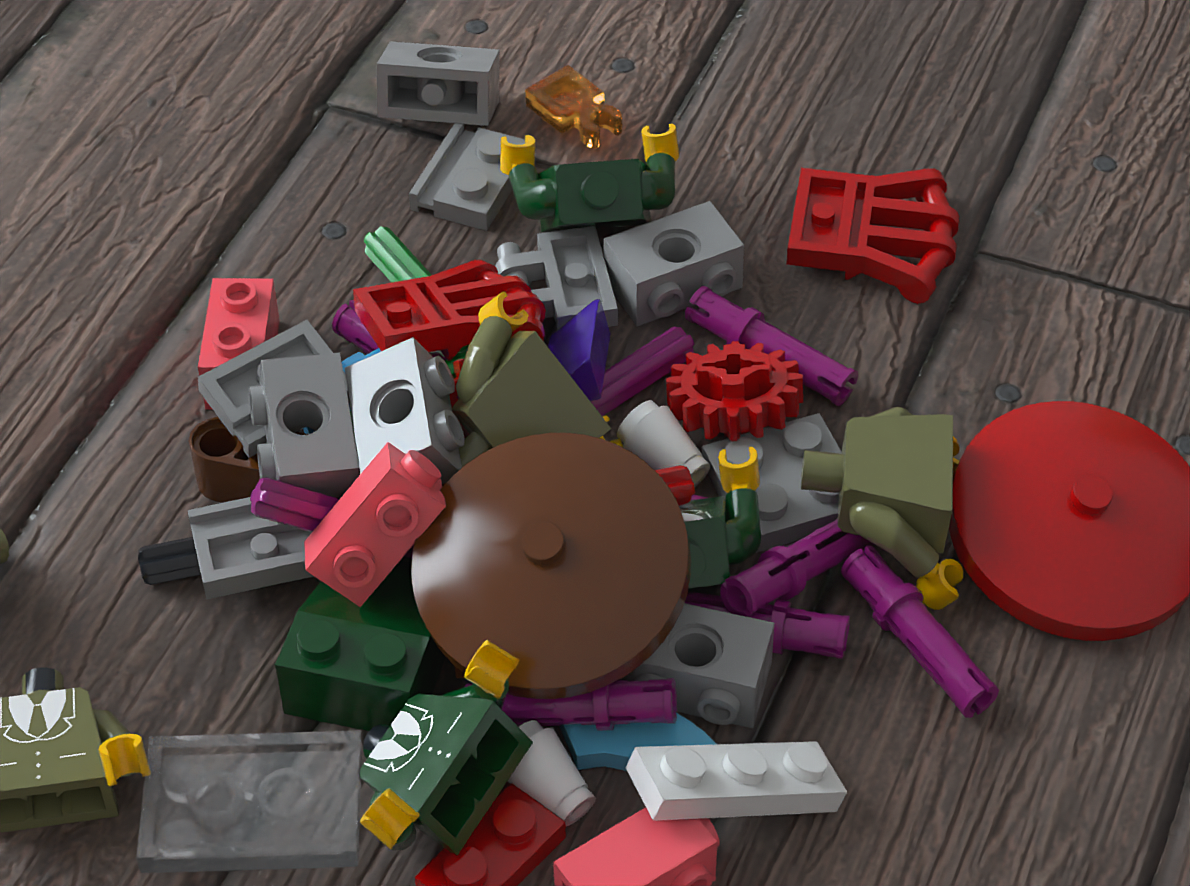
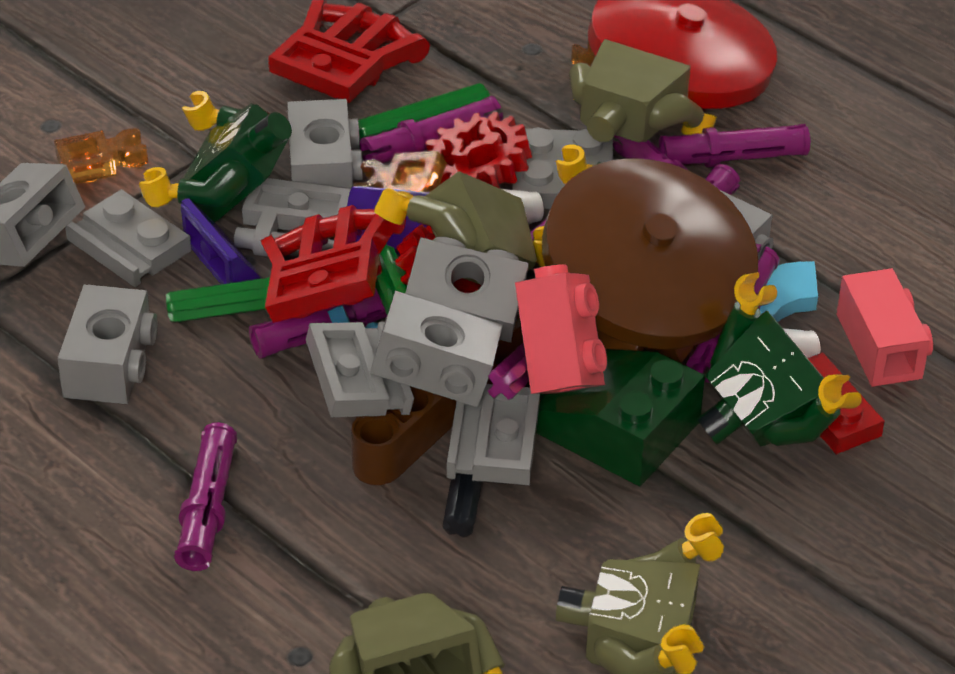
camera: 70 degrees left, 5 degrees down
(108, 356) = (203, 510): none -> magenta pin
(237, 319) = (263, 408): coral brick -> none
(251, 802) = (750, 495): clear plate -> none
(287, 208) = (106, 344): none -> light grey brick
(480, 230) = (215, 247): none -> dark purple slope
(640, 339) = (407, 172): none -> clear orange plate
(735, 780) = (839, 249): white plate -> none
(806, 328) = (421, 110): none -> green axle

